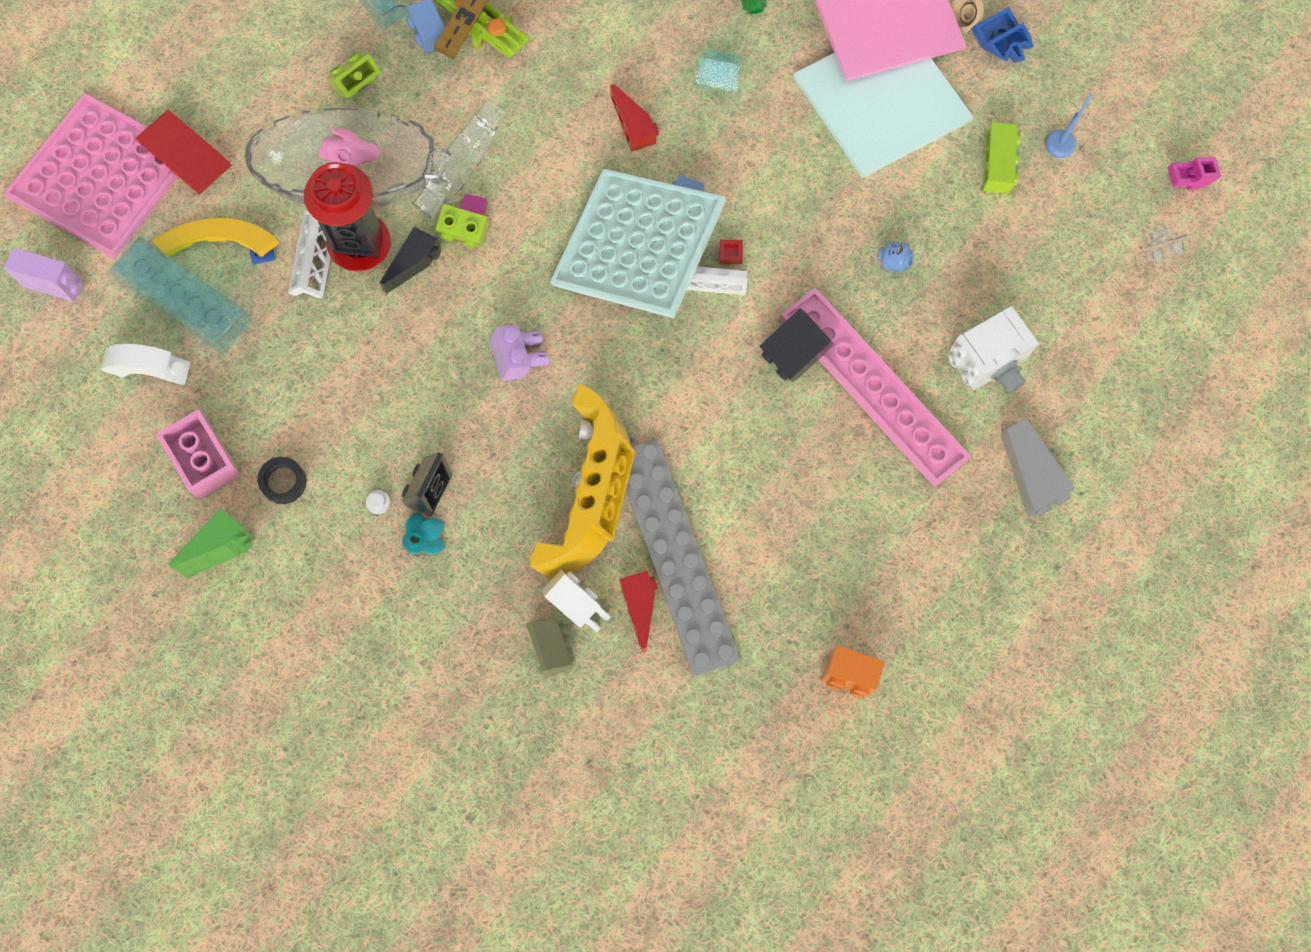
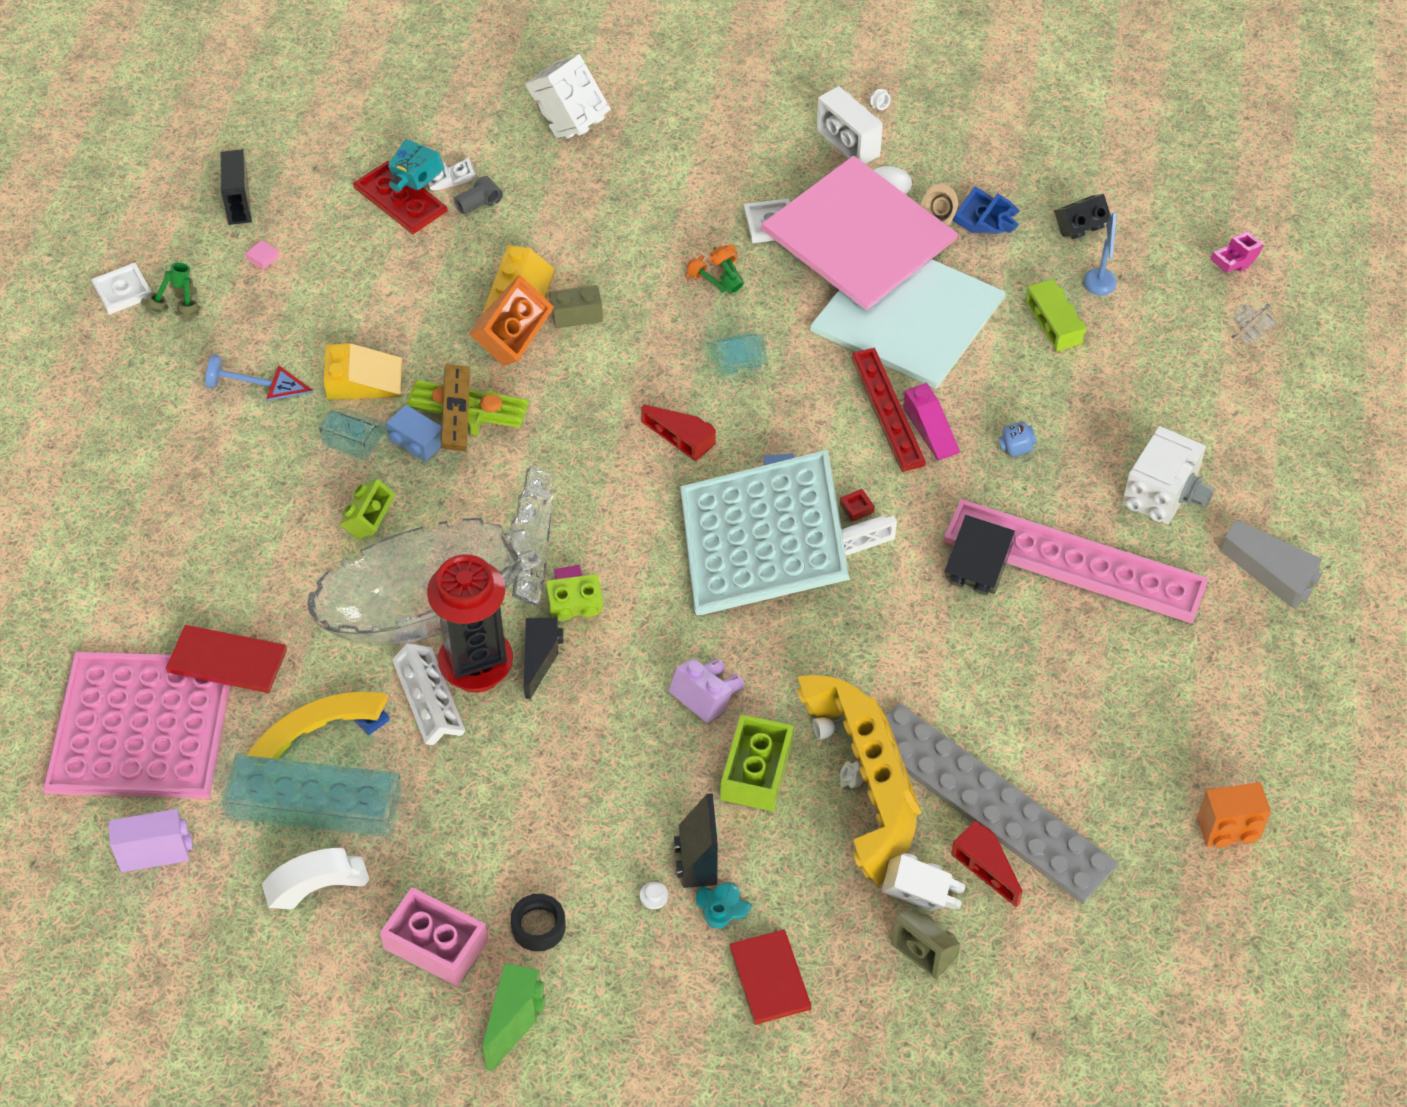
camera: 25 degrees left, 20 degrees down
(348, 148) = (409, 577): bright pink animal -> none
(423, 611) = (770, 976): none -> red tile
(514, 435) = (757, 763): none -> lime brick
(809, 179) = (888, 409): none -> red tile
(835, 206) = (930, 421): none -> dark pink slope
(1083, 76) = (1082, 216): none -> black brick

